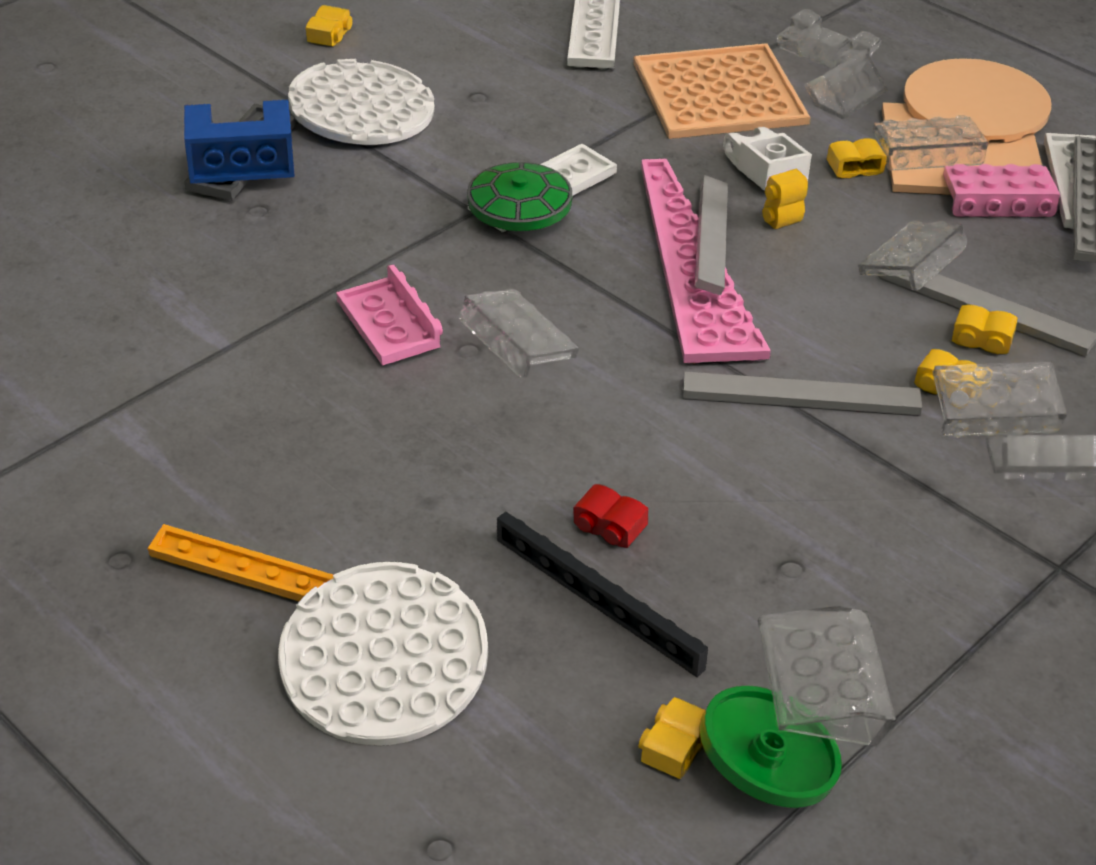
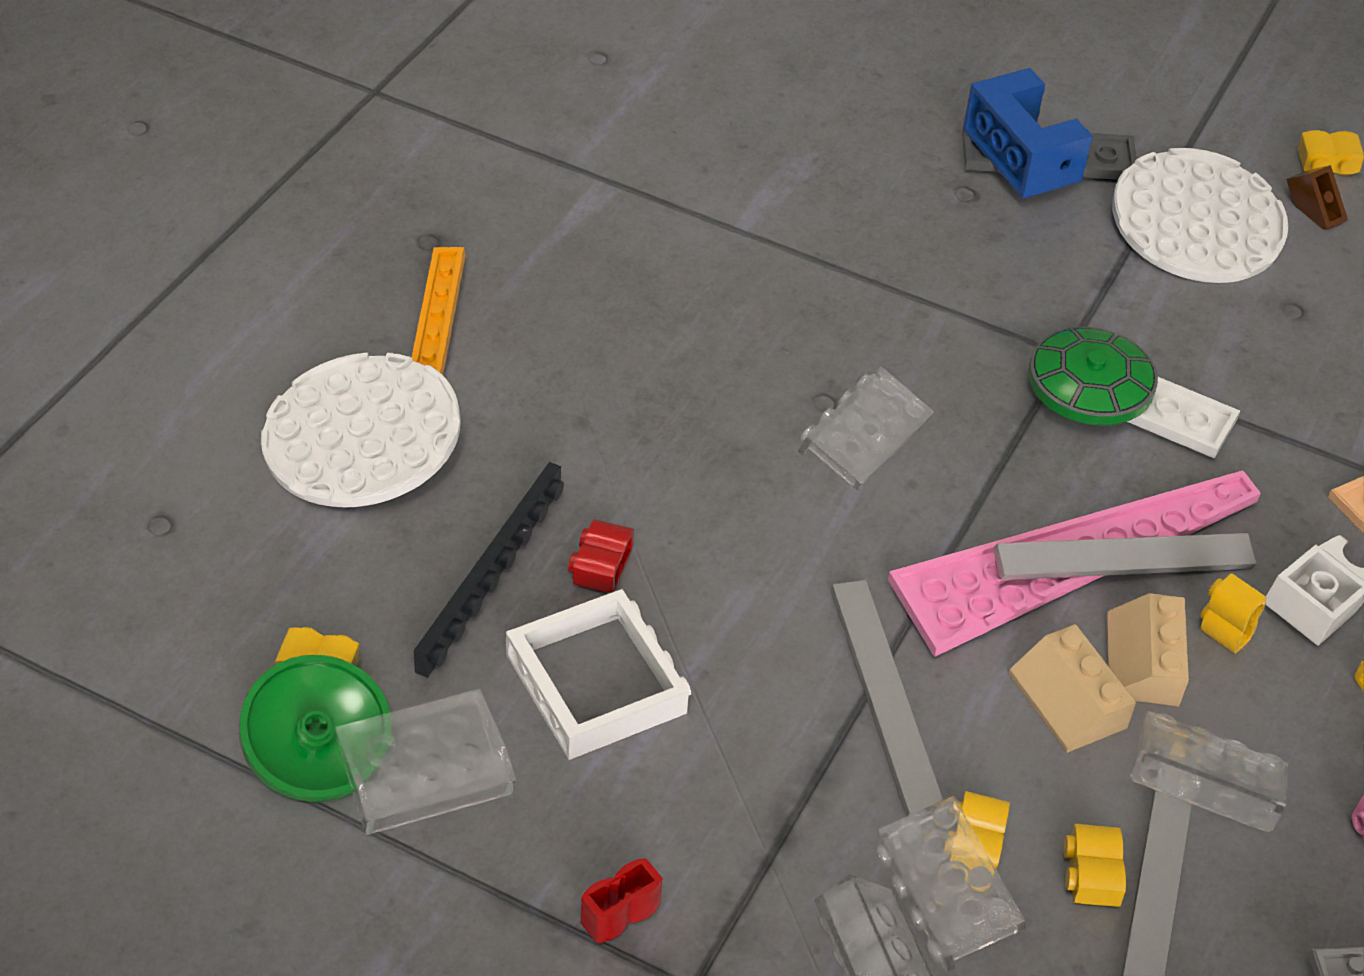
camera: 70 degrees right, 5 degrees up
(372, 44) = (1318, 196): none -> reddish brown slope
(391, 317) = (830, 325): bright pink bracket -> none
(748, 585) = (613, 726): none -> white window
(797, 250) = (1149, 648): none -> tan slope
(824, 295) = (1073, 689): none -> tan slope
(992, 578) = (621, 900): none -> red brick

